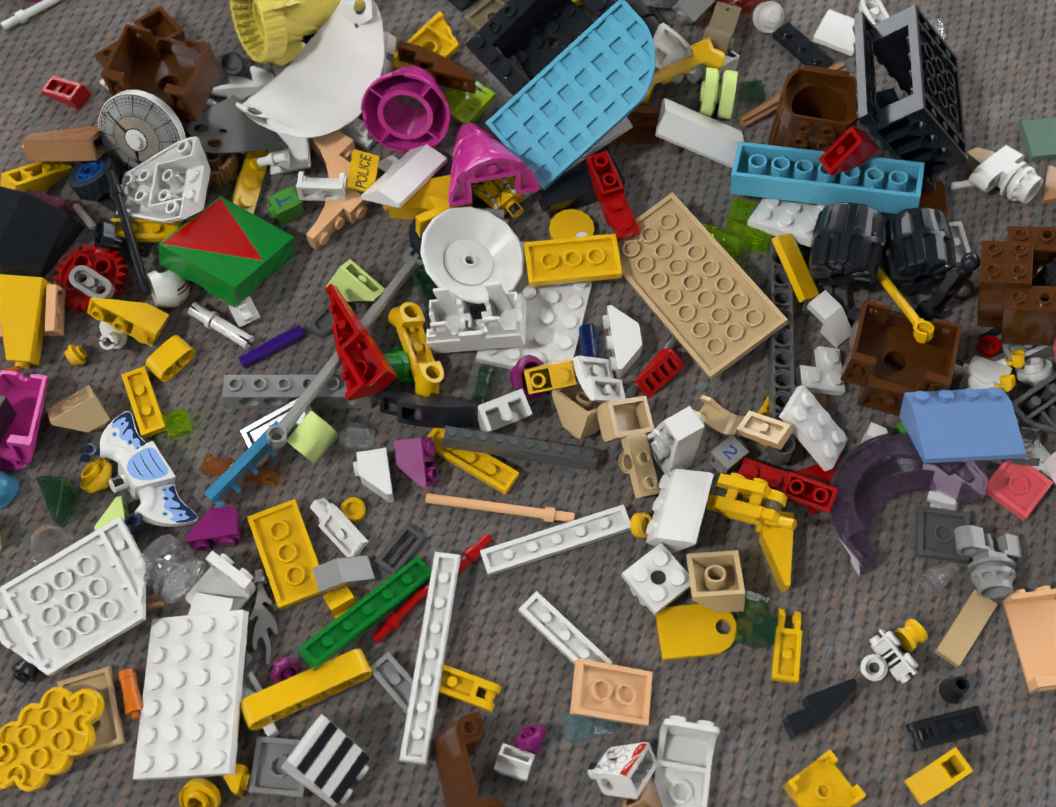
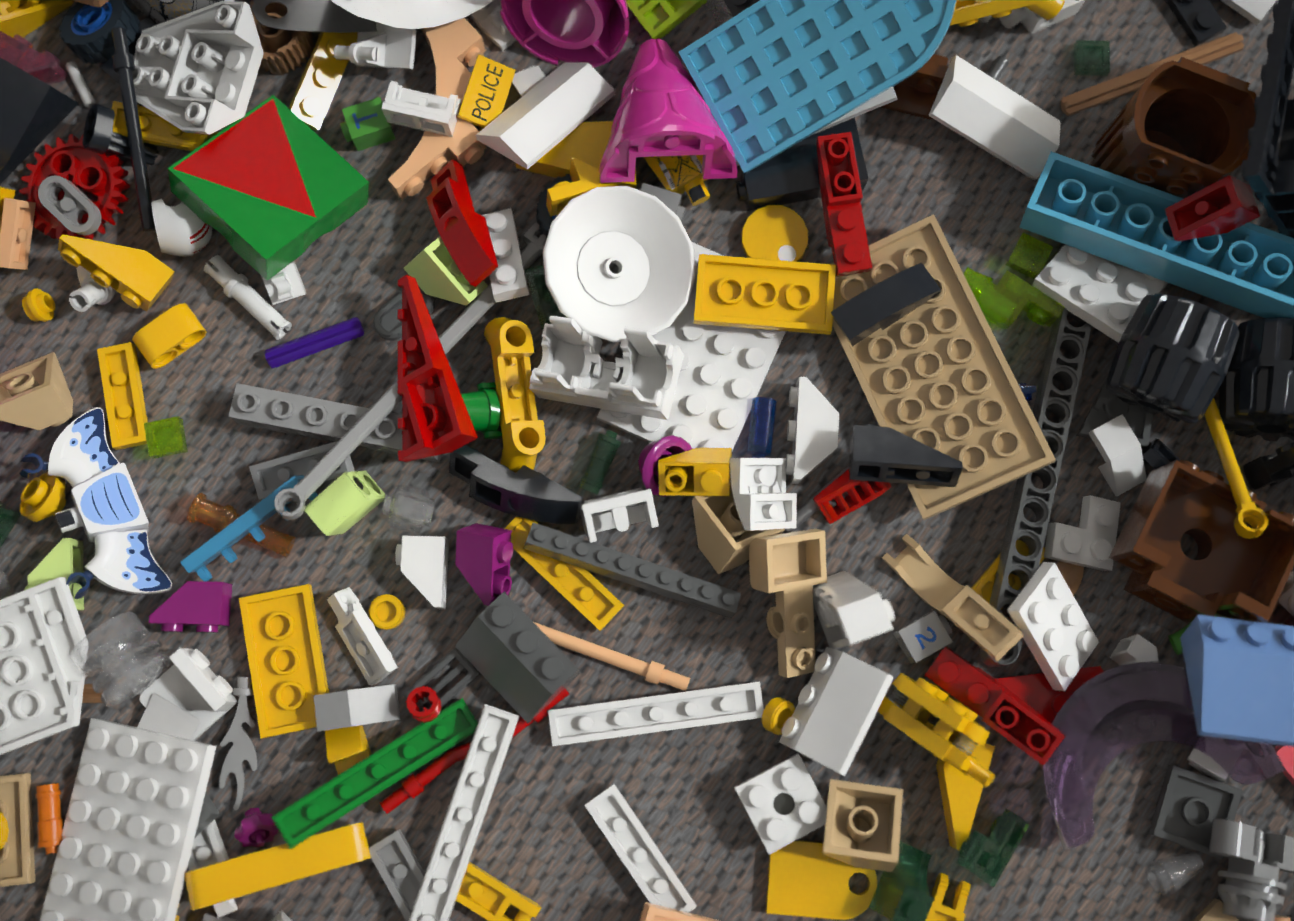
camera: 10 degrees right, 15 degrees up
(361, 252) = (459, 225): none -> red slope
(389, 554) = (419, 693): none -> red bush
(392, 268) = (509, 278): none -> white plate
(452, 516) = (516, 657): none -> dark grey slope
(652, 249) = (885, 303): none -> black slope
(685, 339) = (892, 457): none -> black slope
(718, 93) = (1041, 58): yellowish green wheel -> none
(795, 267) = (1087, 371): yellow tile -> none
(809, 583) = (989, 856): none -> clear green plate

